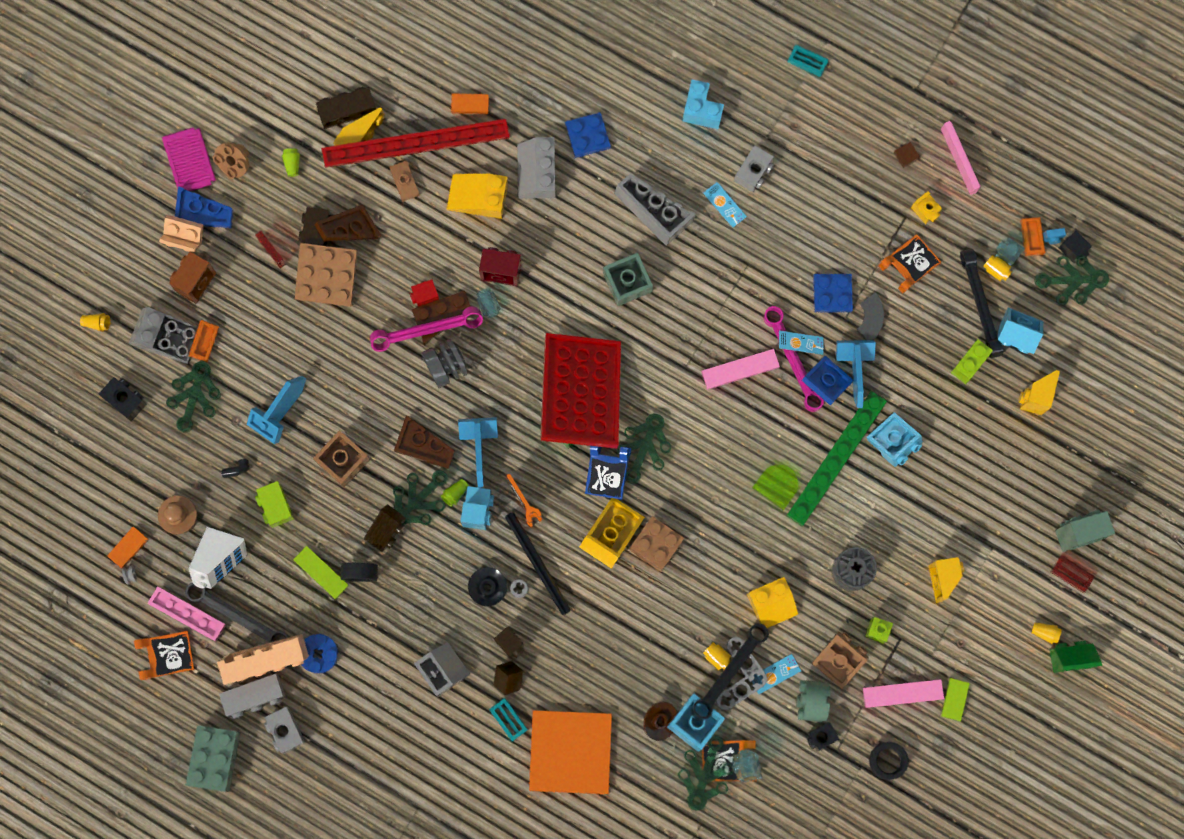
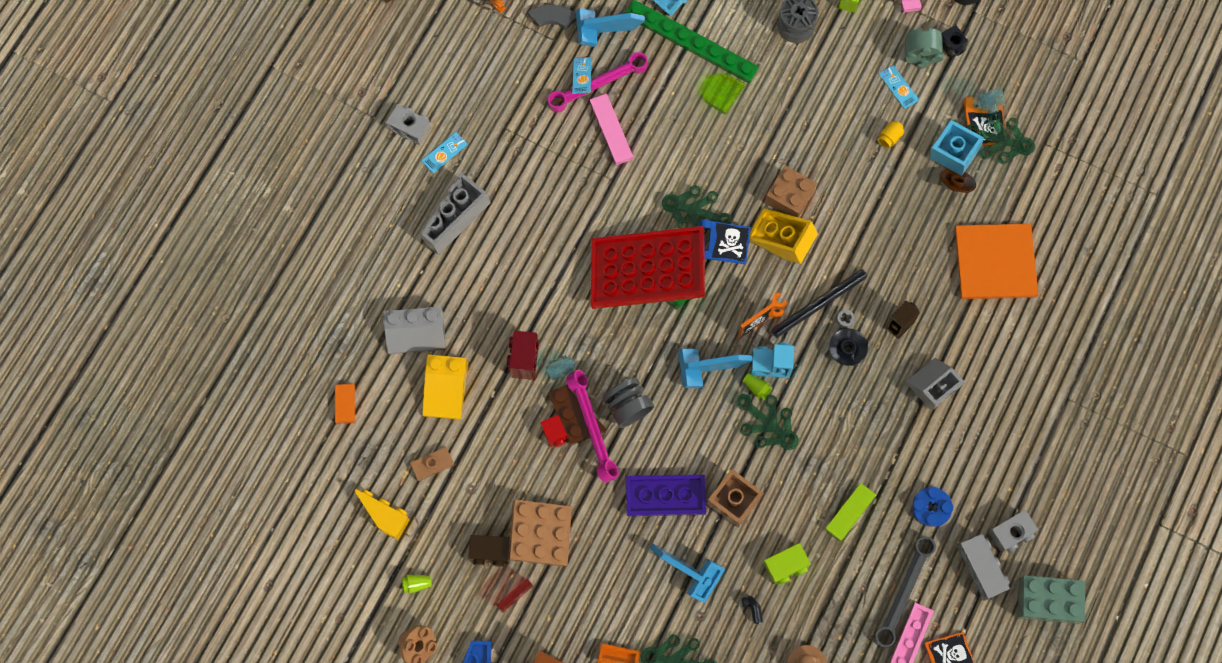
camera: 90 degrees left, 5 degrees down
(216, 557) = (850, 615): white slope -> none
(263, 658) = (948, 556): light nougat wedge -> none
(345, 107) = (352, 530): dark brown brick -> none
(348, 225) = (486, 513): reddish brown wing -> none
(353, 395) = (666, 495): none -> dark purple plate
(359, 572) = (849, 470): black tyre -> none
(384, 528) = (802, 448): dark brown brick -> none
(415, 143) = (394, 453): red plate -> none
(422, 445) = (711, 422): reddish brown wing -> none
(508, 678) = (934, 321): dark brown panel -> none
(518, 733) = (961, 330): teal tile -> none
(587, 135) = (376, 284): blue plate -> none
(627, 279) = (529, 233): sand green brick -> none
(698, 109) = (346, 179): medium azure brick -> none
(729, 672) = (907, 118): black piece -> none
(747, 672) = (904, 107): light grey beam -> none
(773, 603) = (833, 89): yellow slope -> none
(806, 67) = (293, 96): teal tile -> none
(827, 380) = (618, 49): blue plate -> none
(832, 292) = (530, 50): blue plate -> none
(841, 659) = (881, 28): medium nougat plate -> none

